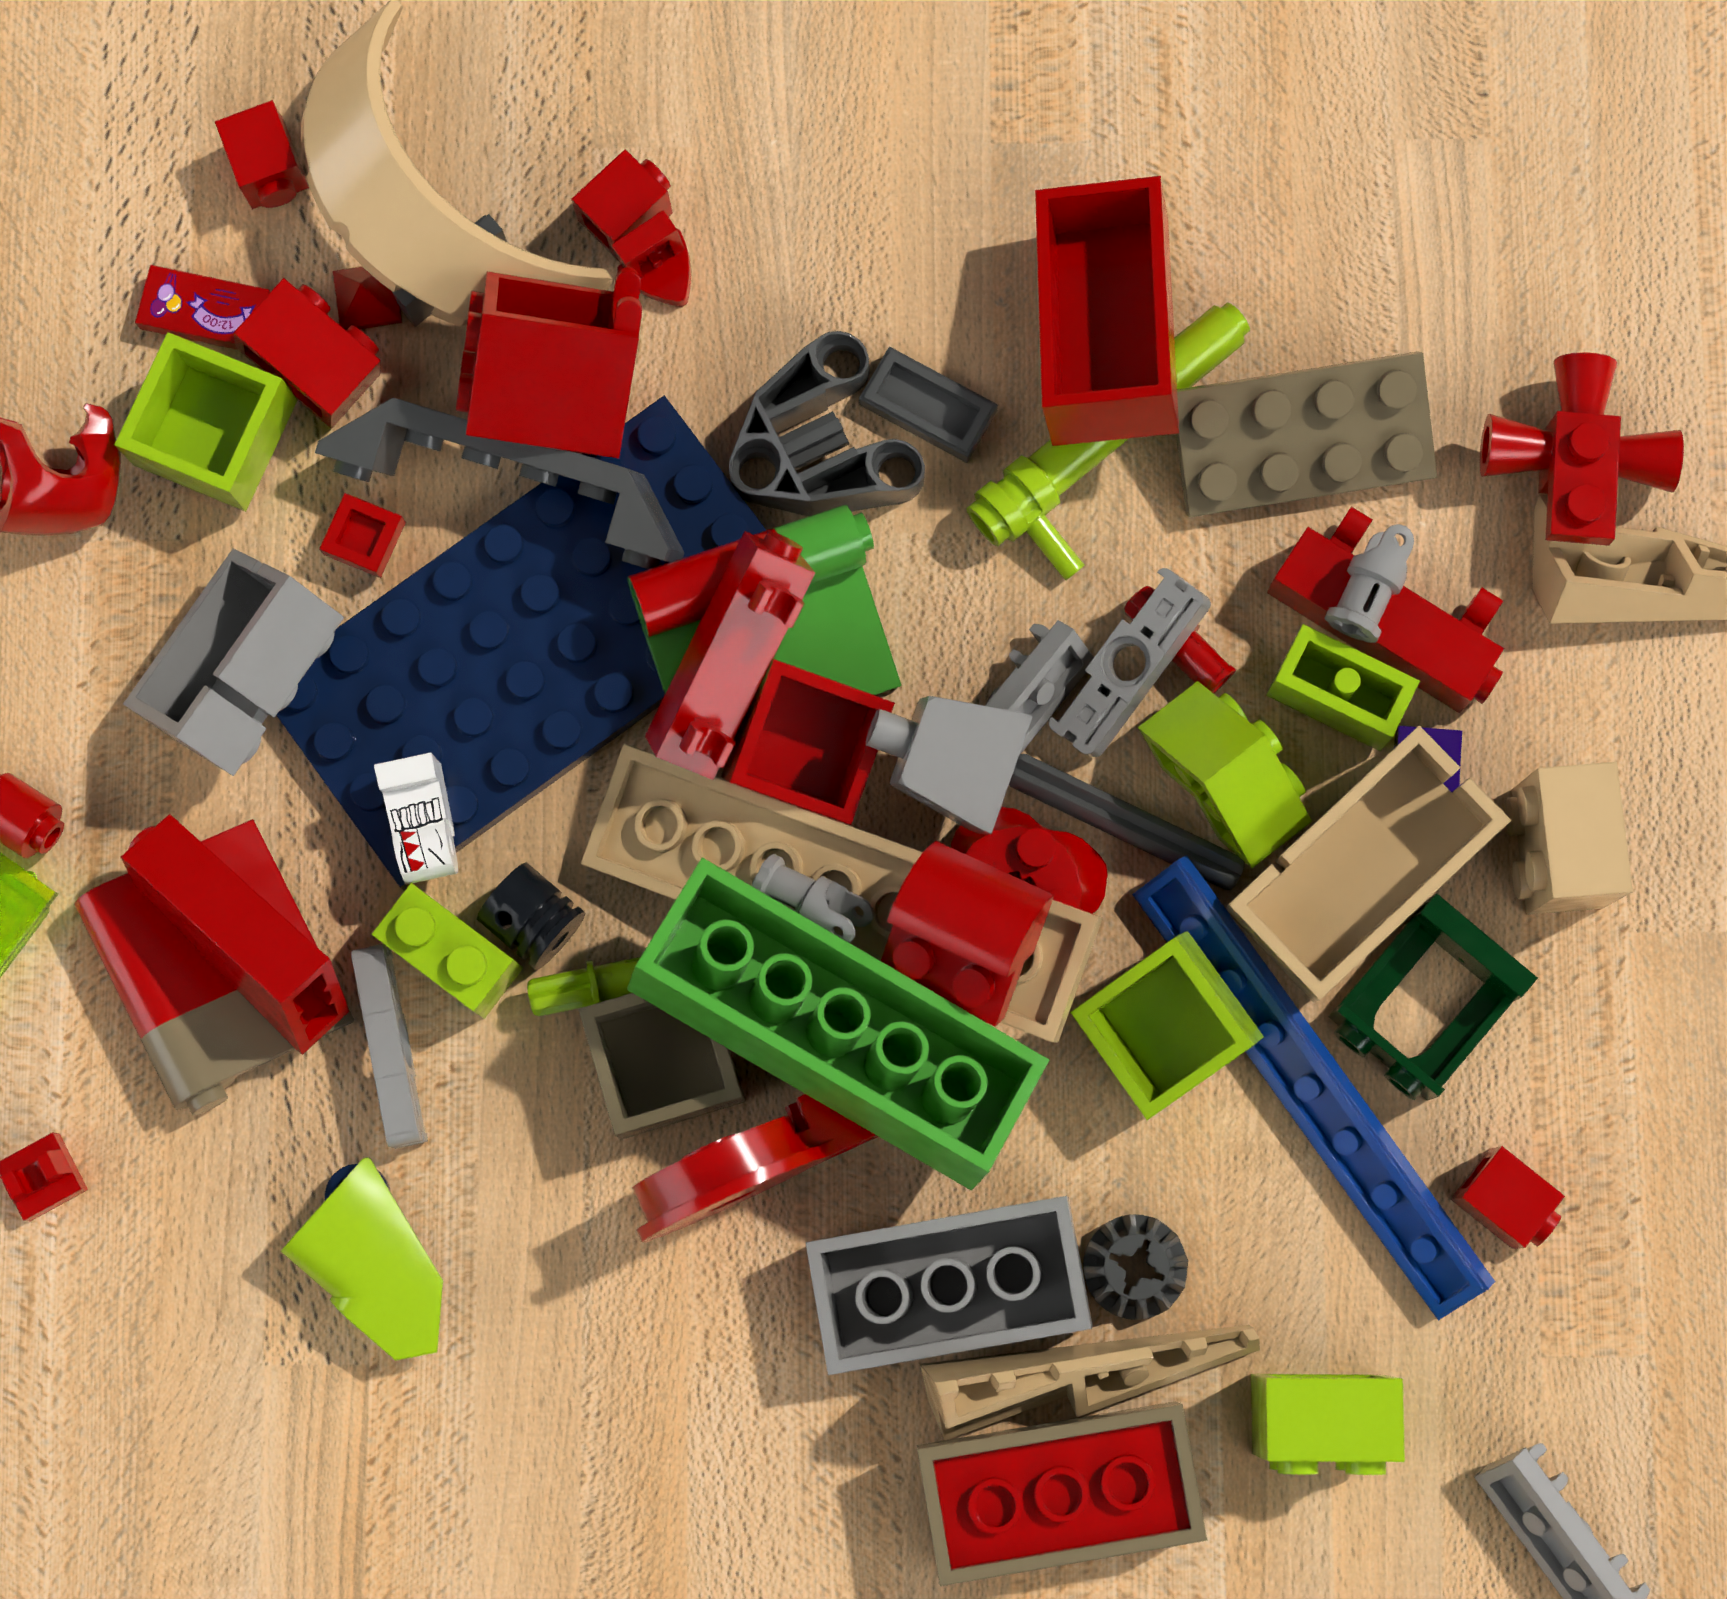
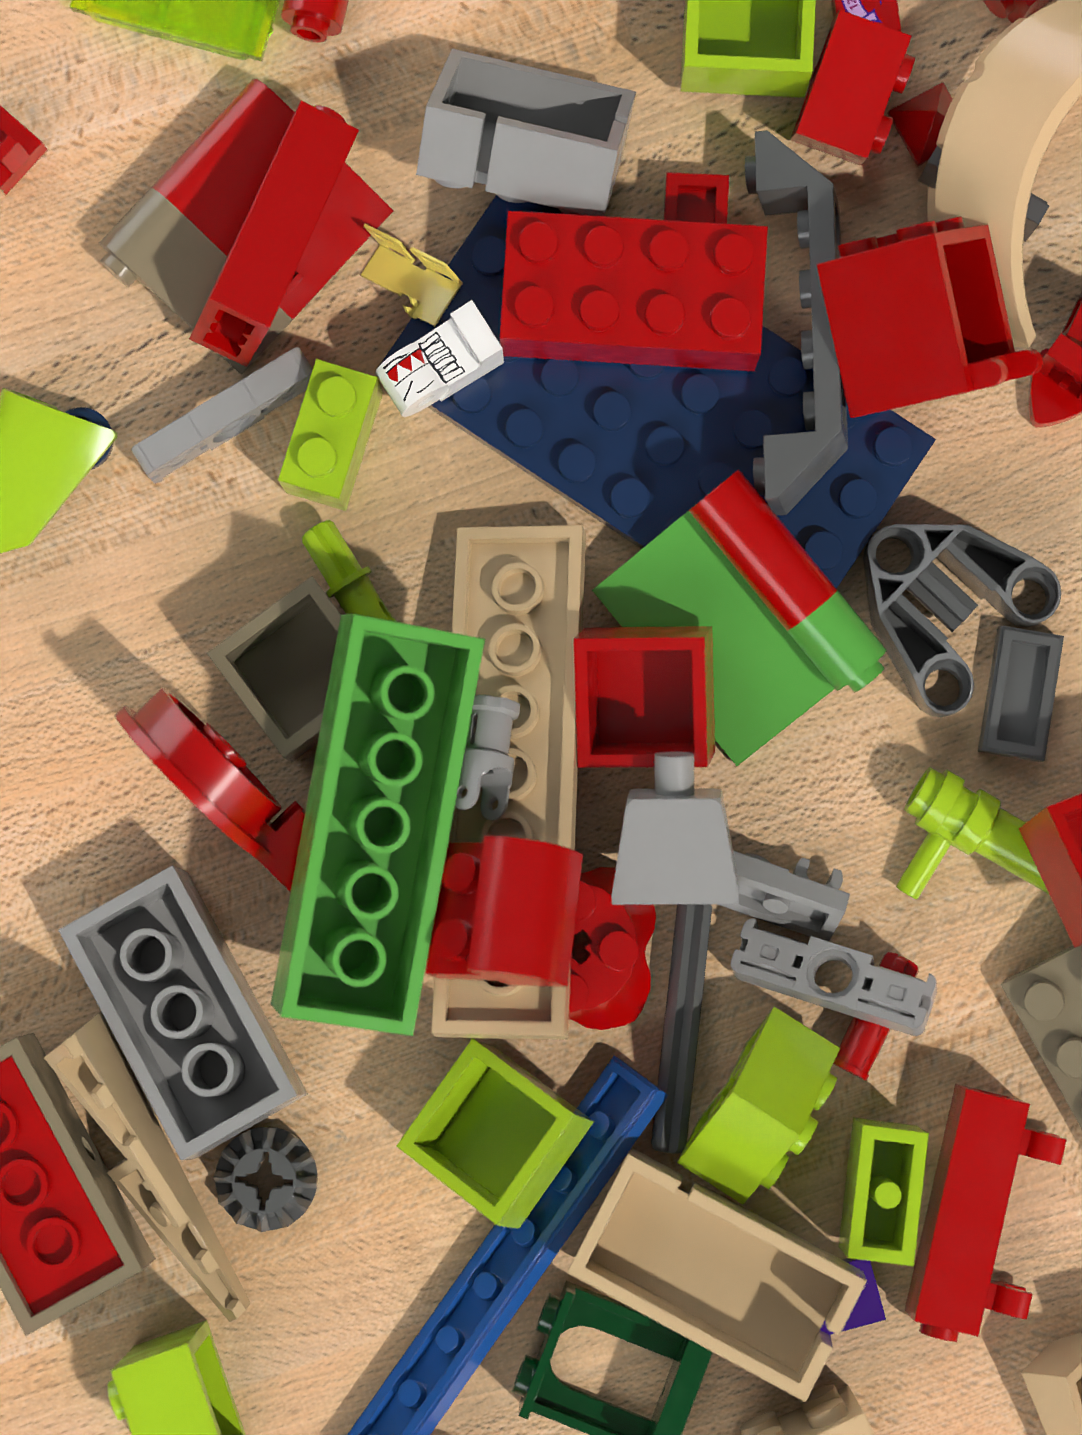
camera: 70 degrees right, 5 degrees up
(343, 811) = (426, 289): none -> light yellow piece
(422, 615) = (633, 291): none -> red brick
(530, 915) = (391, 499): black piece -> none
(730, 653) = (698, 594): brick -> none
(1373, 581) = (994, 1187): light grey piece -> none

